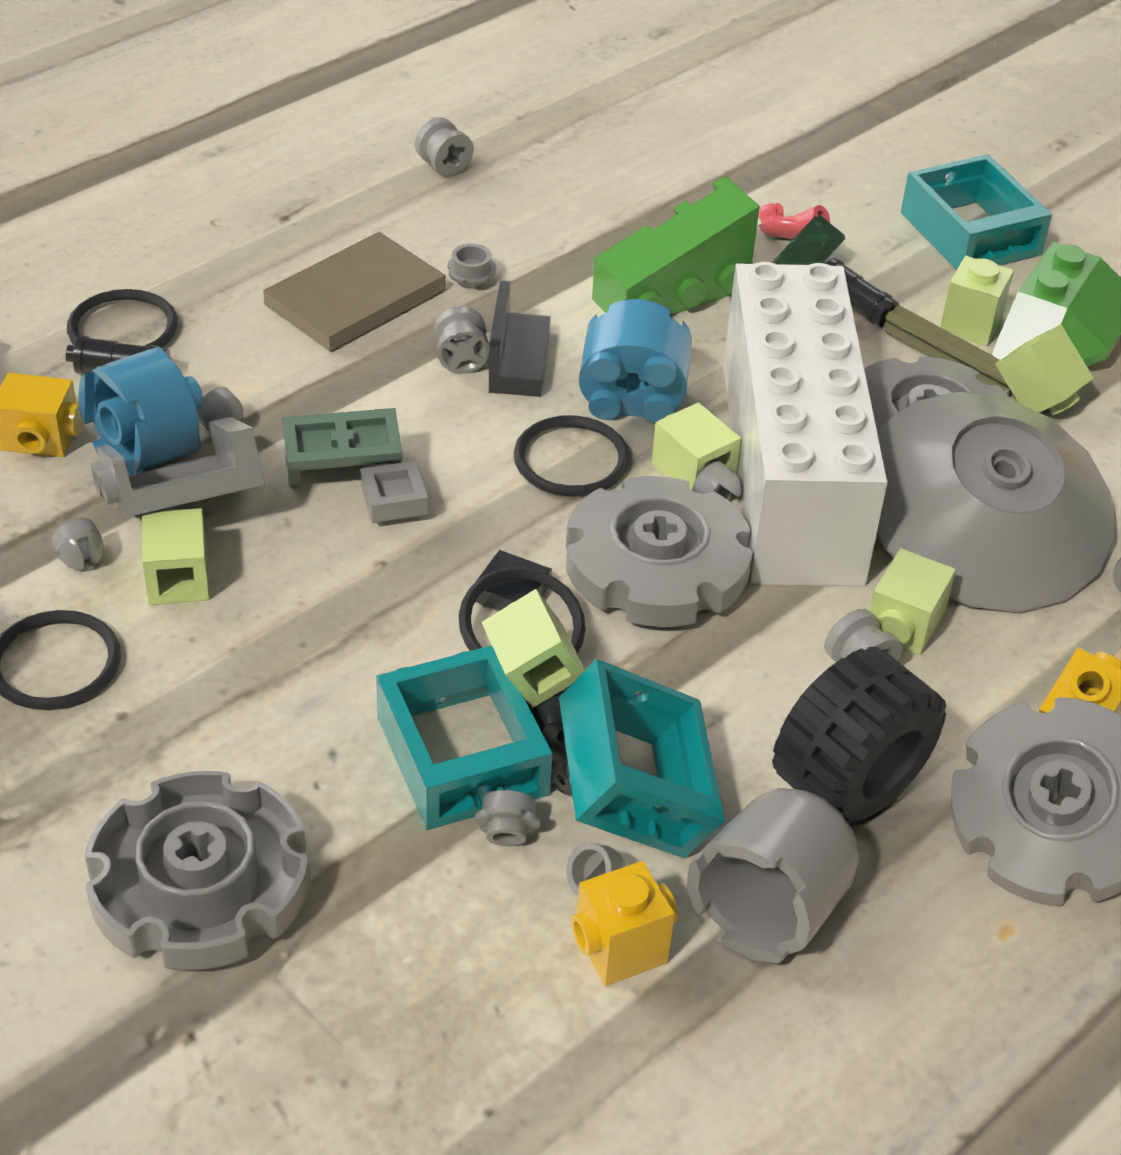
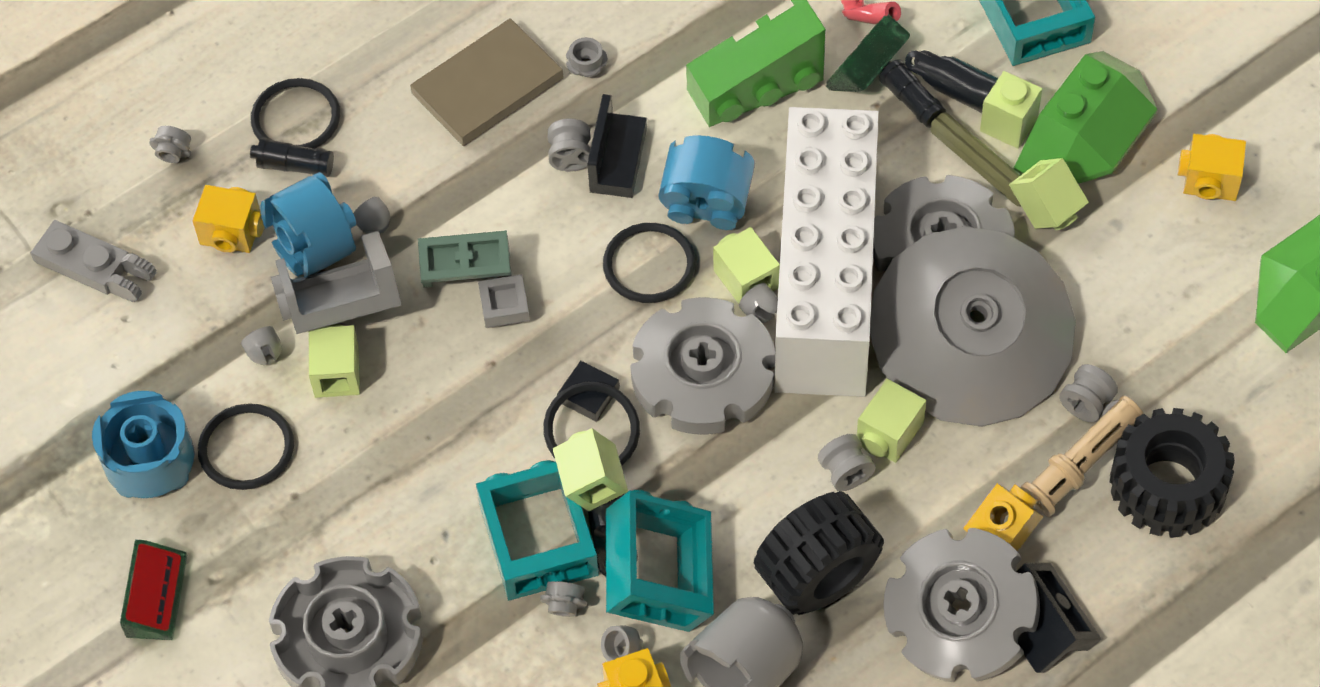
camera: 10 degrees right, 15 degrees up
(903, 276) = (952, 77): none -> black piece

